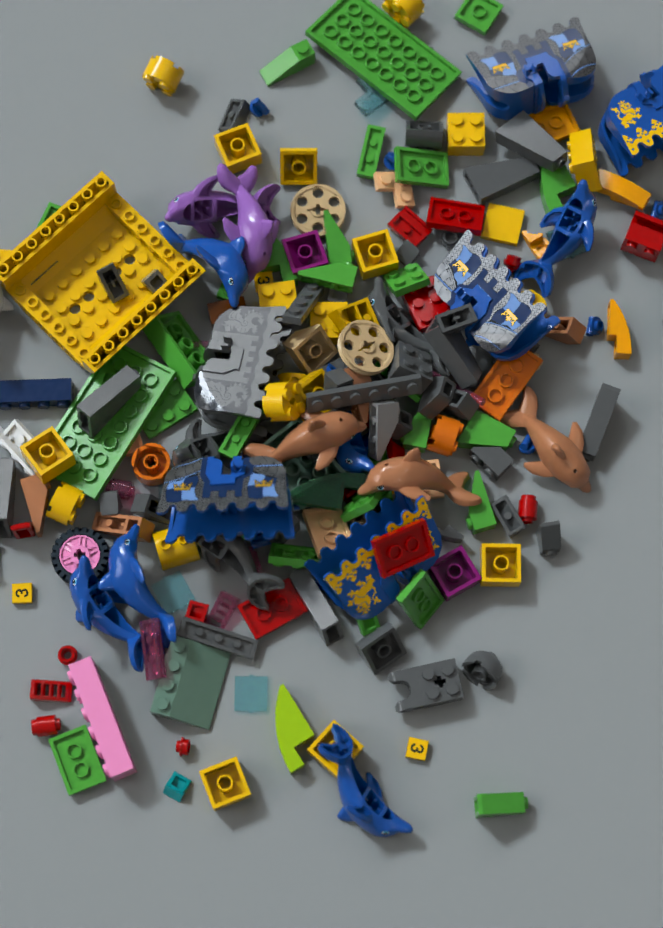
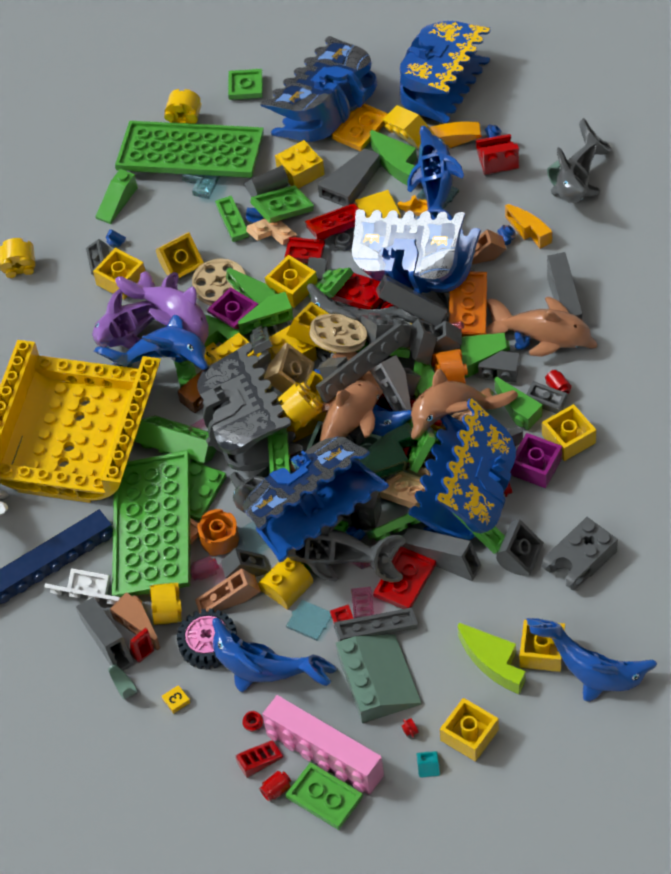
camera: 25 degrees left, 20 degrees down
(48, 455) = (123, 571): yellow brick -> none
(107, 400) = (144, 503): dark grey slope -> none
(110, 503) = (203, 581): dark grey slope -> none
(112, 282) = (83, 419): dark grey slope -> none
(128, 581) = (264, 617): blue animal -> none
(152, 649) = (327, 660): clear pink plate -> none
(154, 280) = (118, 400): dark grey slope -> none
(250, 693) = (436, 654): clear light blue piece -> none
(402, 548) = (483, 445): red plate -> none
(416, 749) = (609, 608): yellow tile -> none
(420, 599) = (524, 489): bright green plate -> none
(456, 319) = (398, 268): dark grey slope -> none
(482, 668) = (616, 514): dark grey cylinder -> none
(531, 141) = (358, 136): dark grey slope -> none
(549, 538) = (592, 390): dark grey slope -> none

